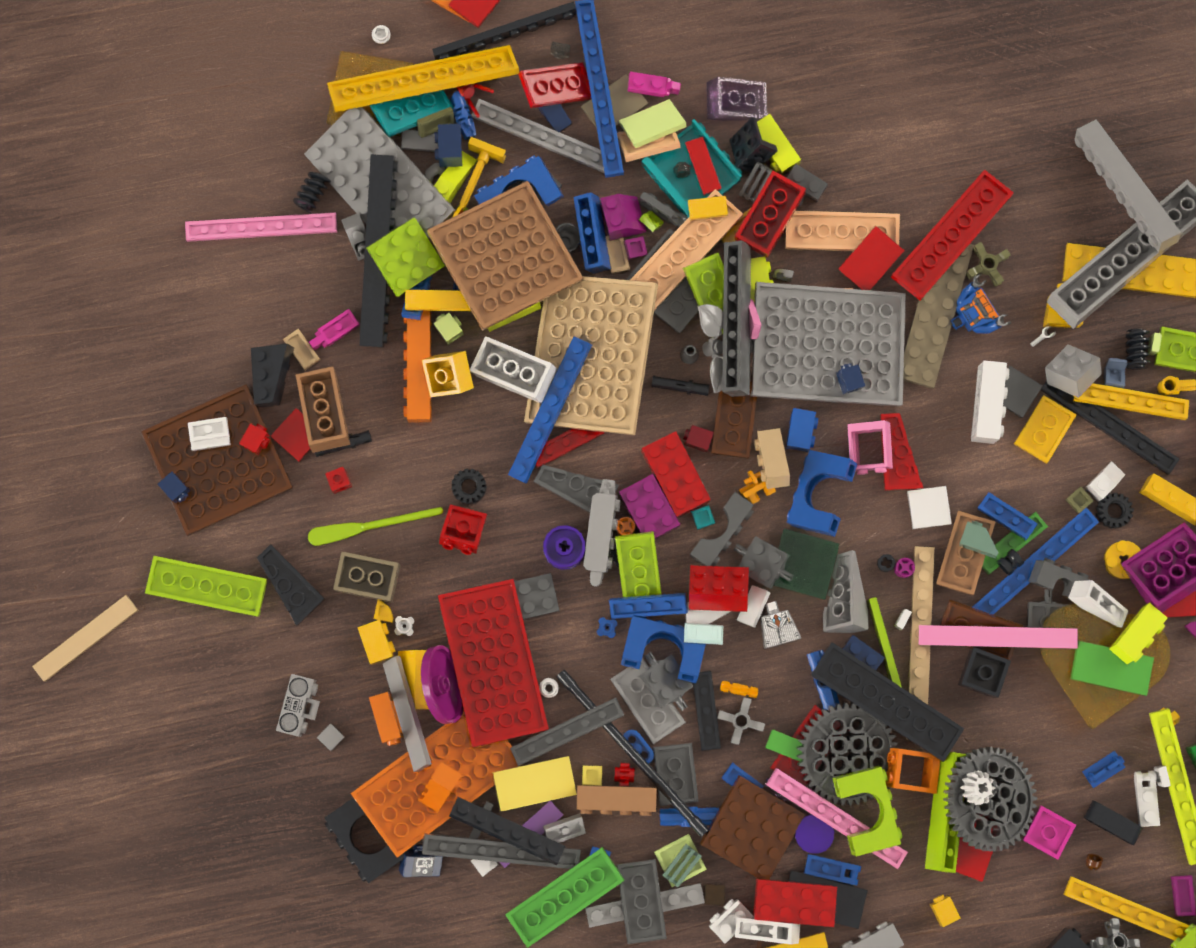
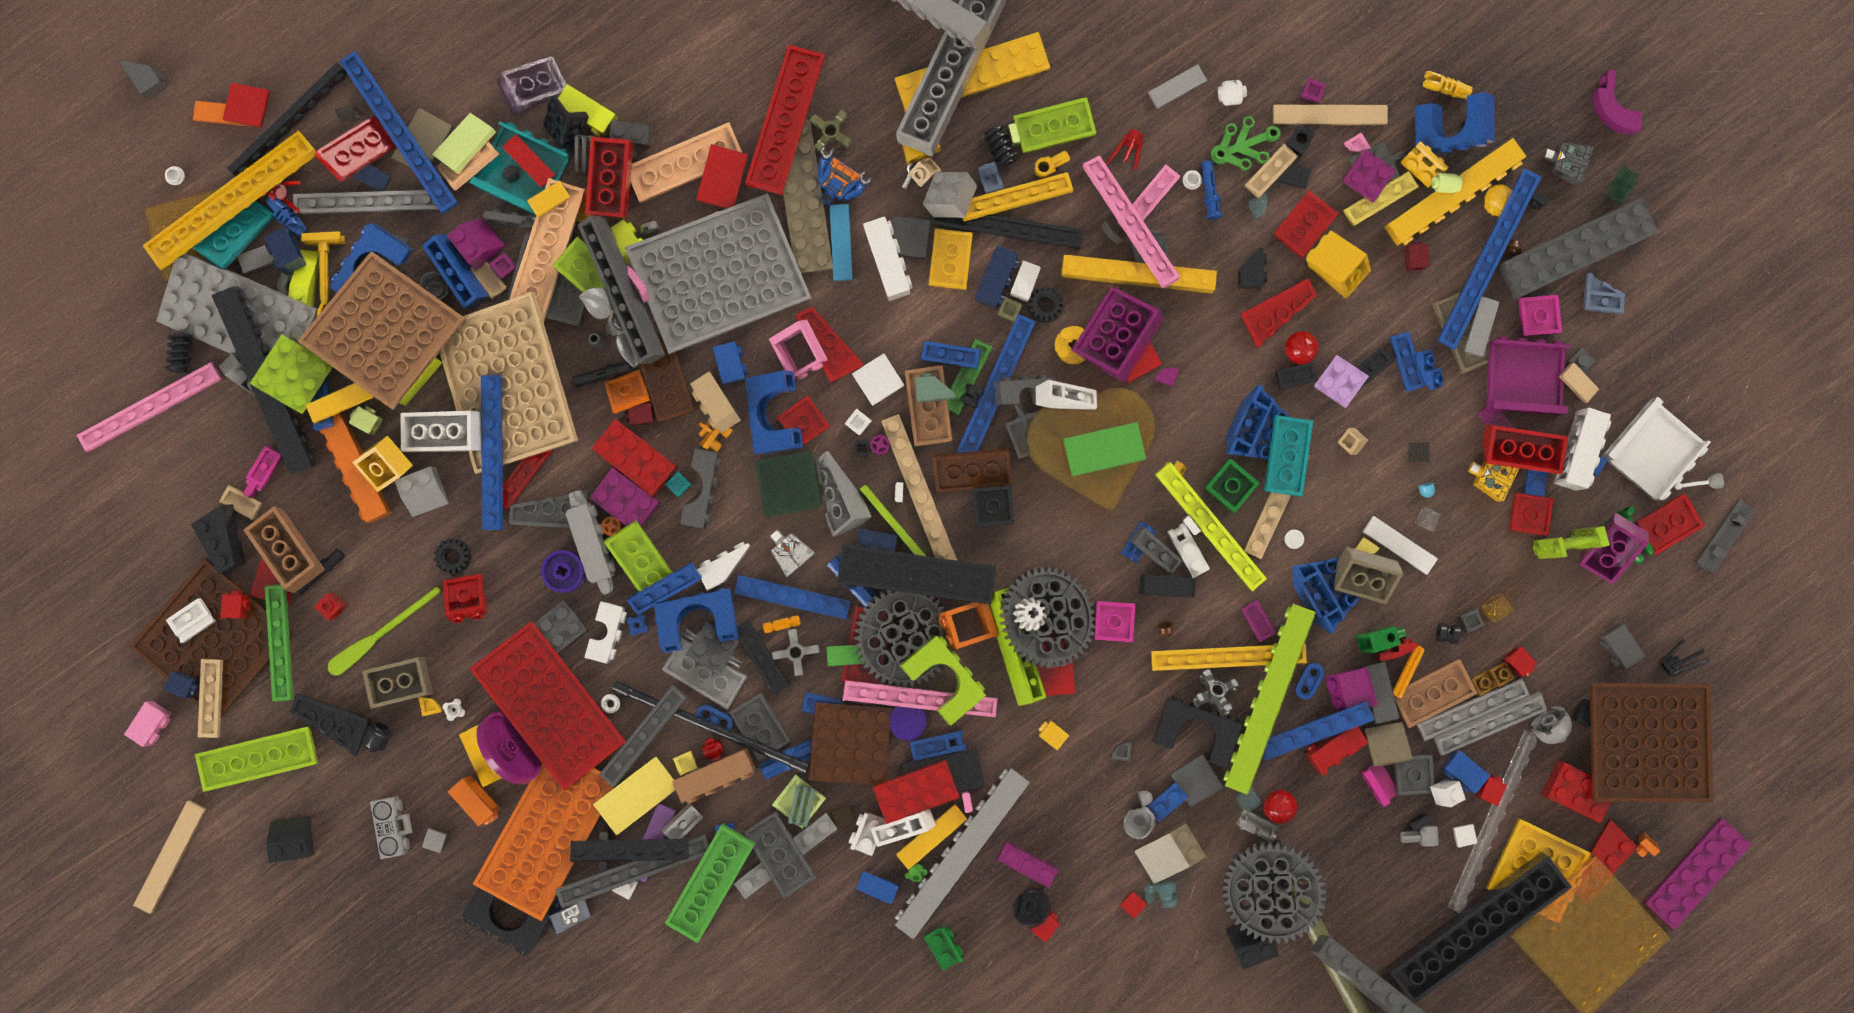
camera: 25 degrees left, 5 degrees up
(125, 508) = (148, 724): none -> bright pink brick
(193, 511) = (210, 698): none -> tan plate
(201, 673) = (290, 839): none -> black slope
(277, 491) = (279, 643): none -> bright green tile
(323, 617) = (376, 737): none -> black head
(376, 642) = (434, 736): yellow brick -> none
(407, 714) = (491, 788): light grey tile -> none
(429, 124) = (256, 240): olive tile -> none
(440, 786) = (548, 841): orange wedge -> none
(469, 415) = (422, 491): none -> light grey slope
(564, 634) = (612, 617): none -> white arch
(651, 220) = (505, 234): lime tile -> none
(652, 85) = (447, 107): dark pink hinge -> none
(696, 411) = (626, 391): none -> orange tile
(703, 633) = (724, 590): light aqua tile -> none
(718, 588) = (719, 543): red brick -> none
(756, 602) = (760, 543): white tile -> none
(763, 672) = (792, 597): none -> blue plate
(764, 562) = (750, 500): dark grey plate -> none
(836, 935) = (967, 801): none -> bright pink tile
(848, 509) = (804, 416): none -> red plate
(850, 378) = (751, 296): dark blue brick -> none
(893, 537) = (858, 422): none -> white plate
(951, 368) = (841, 242): none -> dark azure tile
(998, 636) = (989, 469): bright pink tile -> none
(1057, 339) = (924, 171): none -> tan bracket
(1081, 465) = (997, 277): none -> dark blue brick
(1118, 784) = (1156, 550): none -> dark grey tile
(1139, 634) = (1114, 407): neon yellow brick -> none

